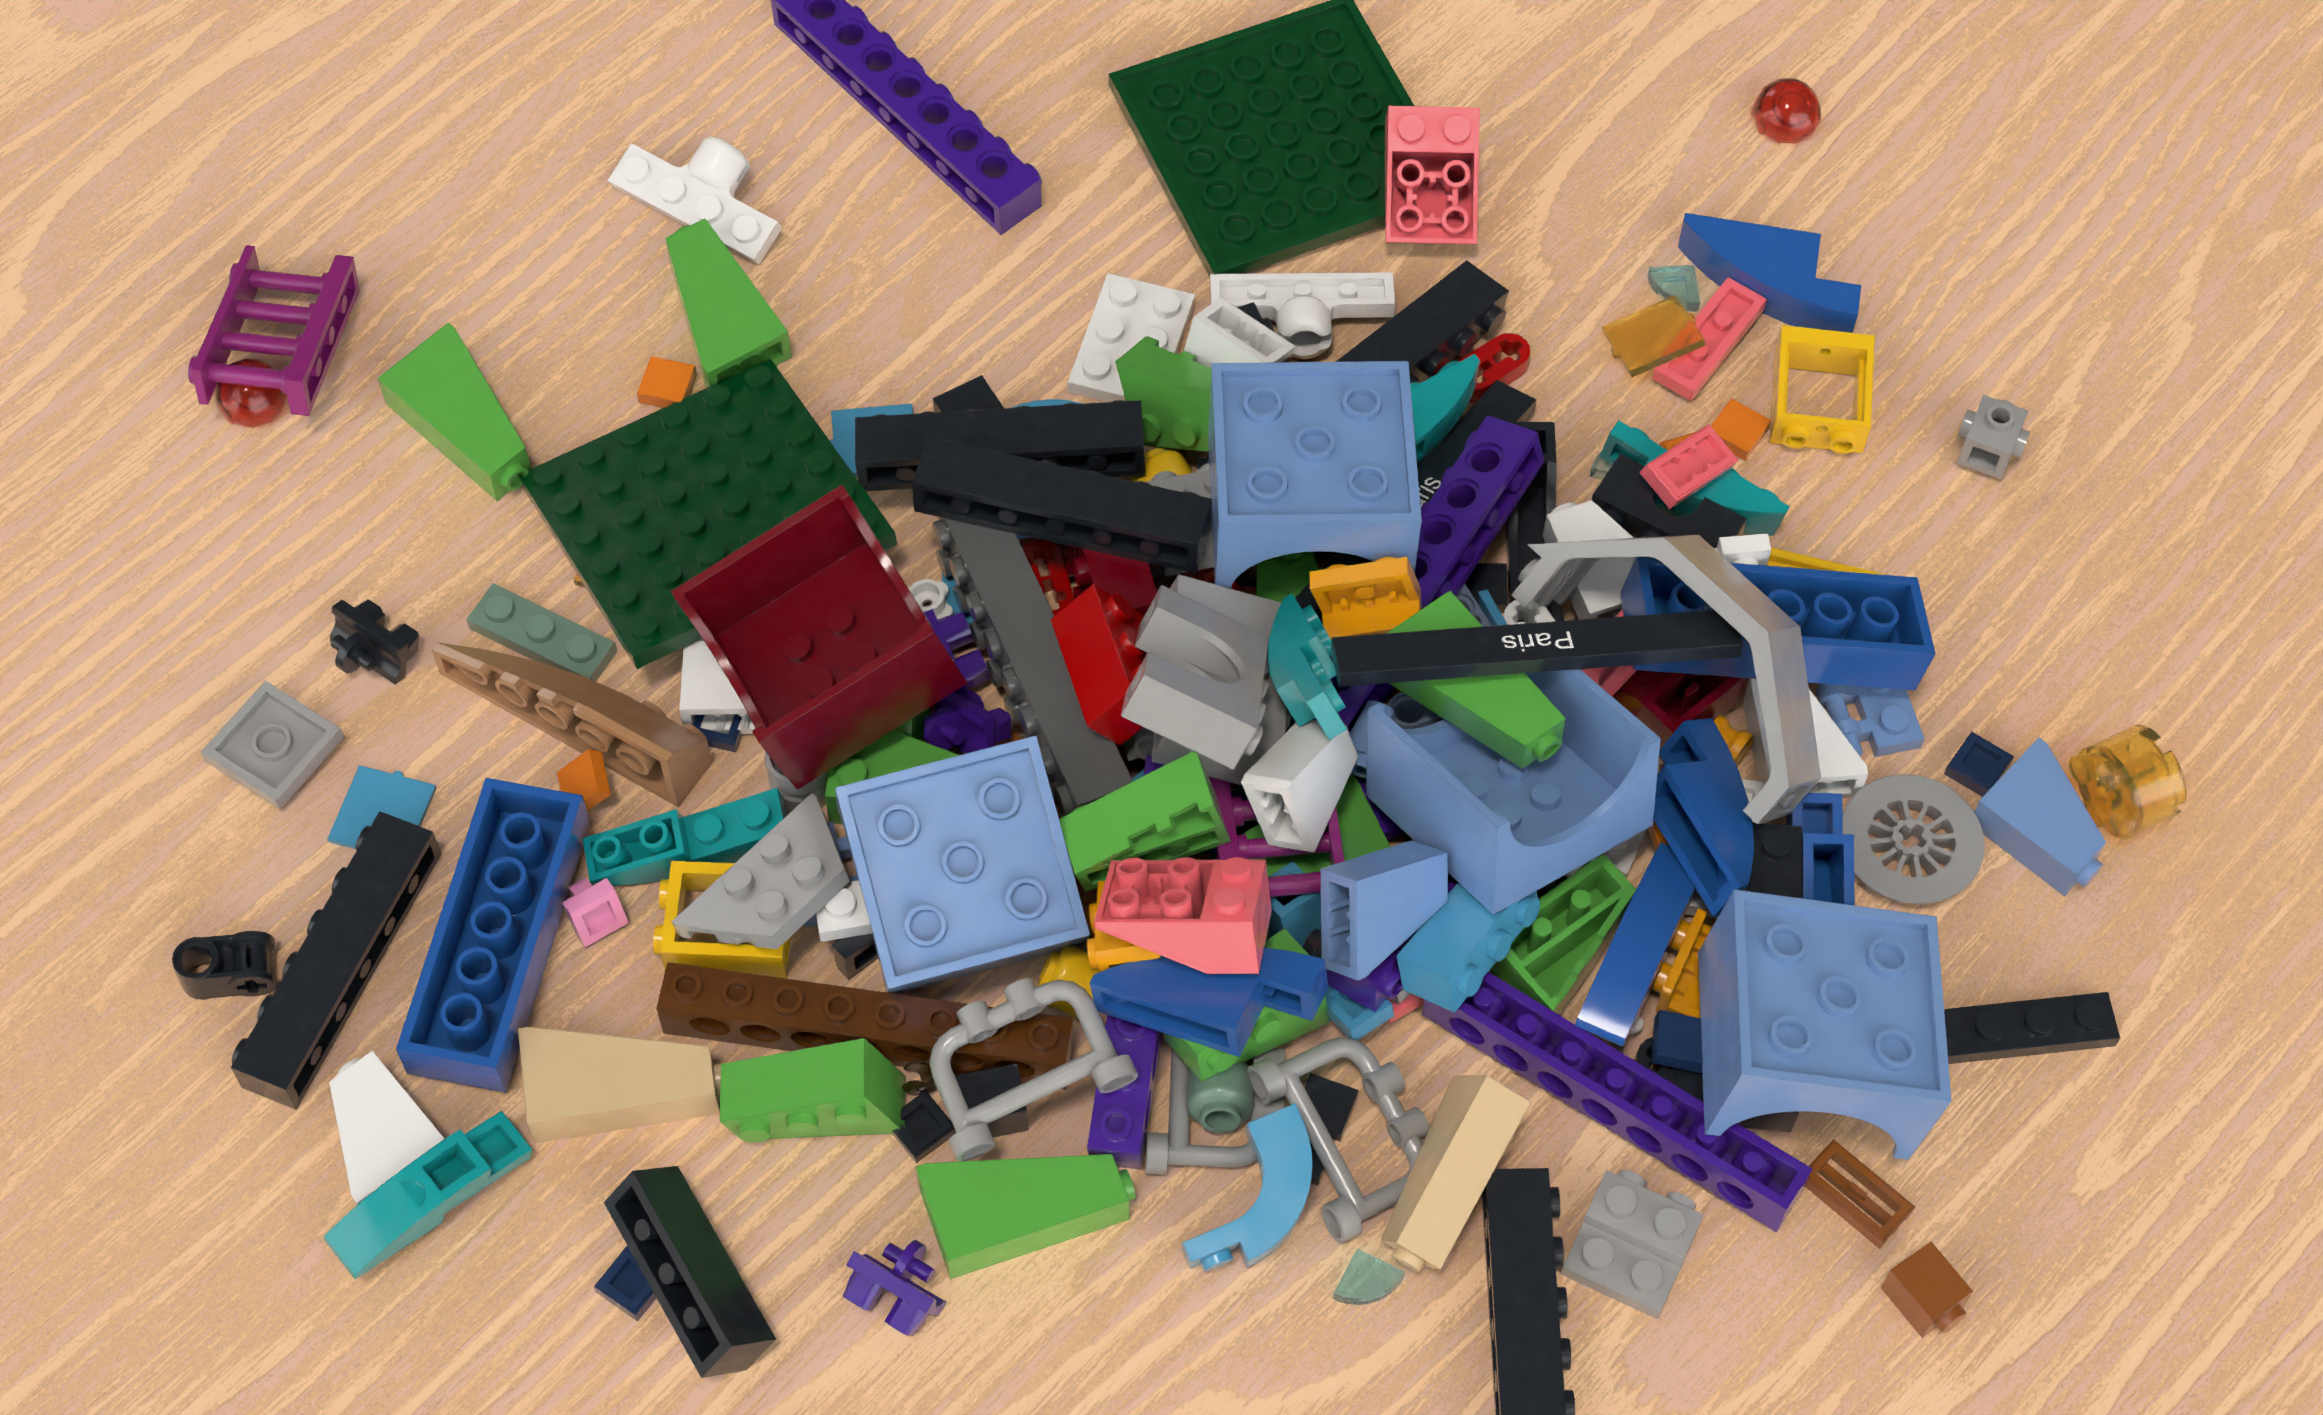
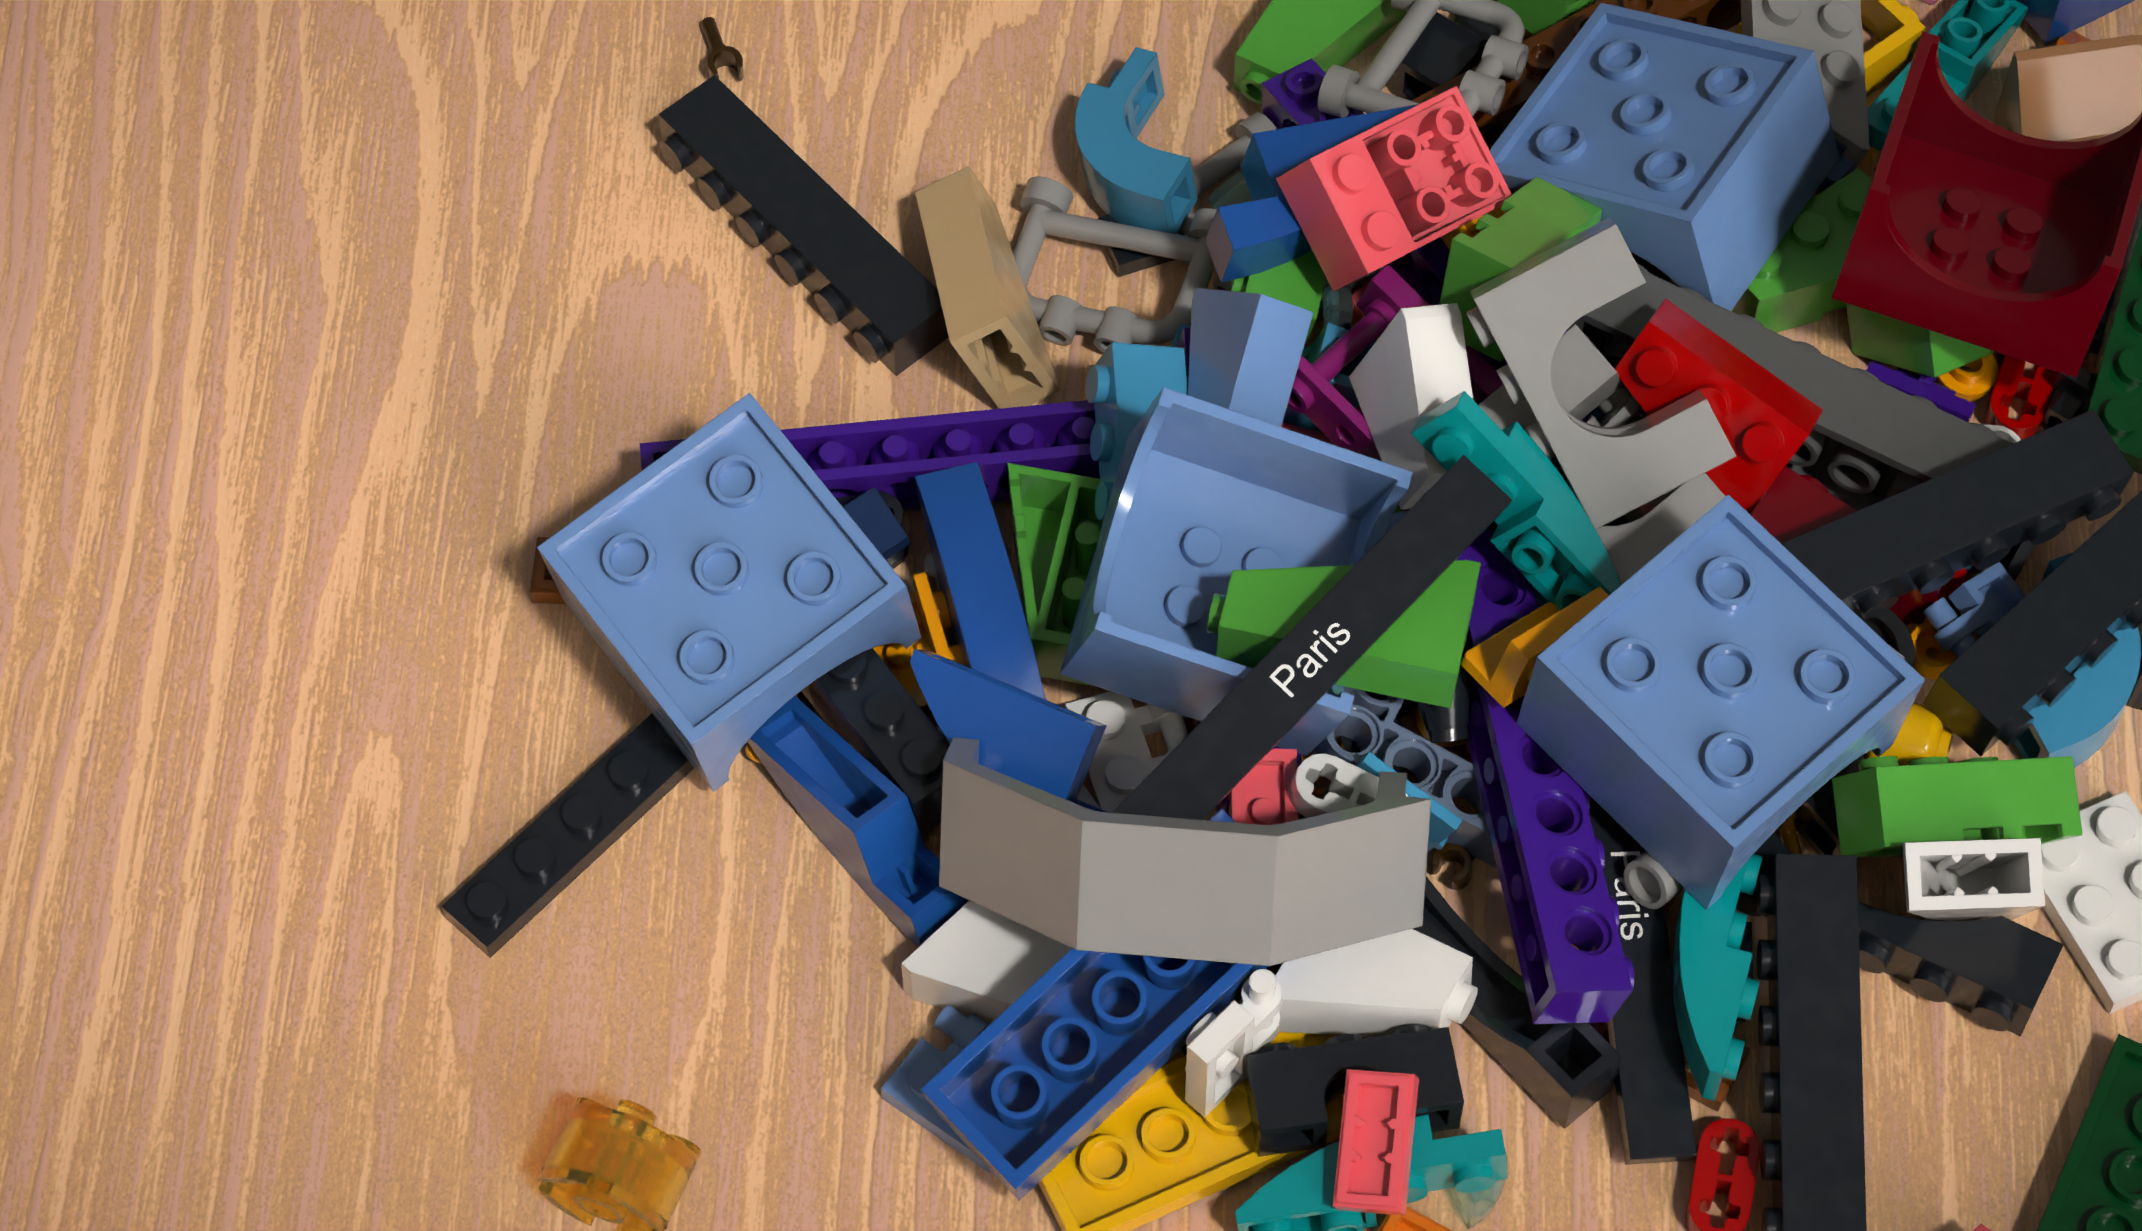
camera: 140 degrees right, 0 degrees up
(965, 724) = (1824, 332): dark purple hips -> none
(1308, 302) = (1992, 1083): white plate -> none
(1332, 1101) = (1149, 286): black tile -> none
(1367, 1280) = (990, 170): clear light blue tile -> none
(1491, 578) = (1482, 905): black tile -> none
(1633, 1242) = (778, 361): light grey plate -> none
(1928, 1291) = (461, 515): dark orange brick -> none
(1930, 798) = (791, 899): light grey piece -> none
(1978, 764) = (802, 1115): dark blue tile -> none
(2042, 821) = (692, 1074): medium blue slope -> none

